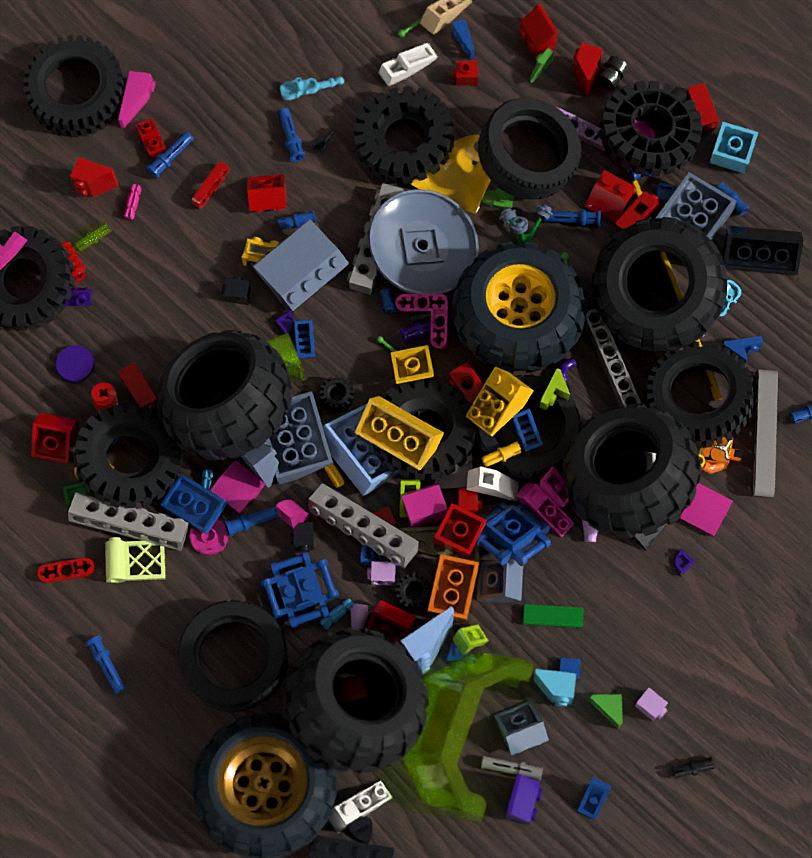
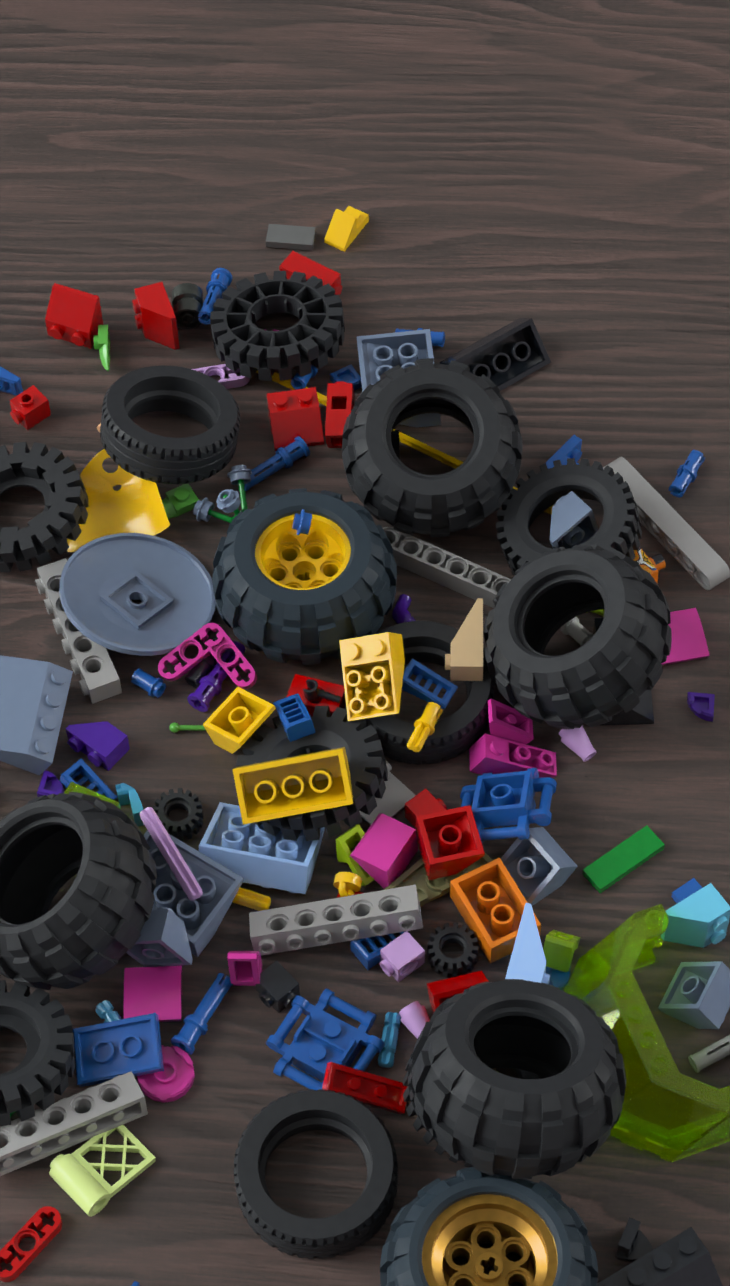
camera: 40 degrees left, 15 degrees down
(294, 627) = (365, 1087): none -> red tile
(305, 418) = (171, 853): none -> lavender axle
(319, 359) = (128, 795): none -> dark azure slope
(332, 317) = (99, 741): none -> dark purple slope
(359, 806) = (608, 1220): white slope -> none
(391, 511) = (348, 883): none -> yellow tile
(438, 400) = (296, 722): none -> blue slope
(468, 383) = (315, 693): none -> black hand
(492, 483) = (435, 769): white slope -> none
(531, 279) = (302, 522): none -> blue plate
(556, 387) = (421, 620): lime slope -> none
(565, 426) = (467, 648): none -> tan slope
(637, 74) = (214, 290): none -> blue pin
(701, 394) = (571, 522): none -> sand blue slope
(716, 70) = (290, 237): none -> dark grey tile
(733, 147) = (378, 289): medium azure brick -> none
(755, 88) = (345, 227): none -> yellow slope

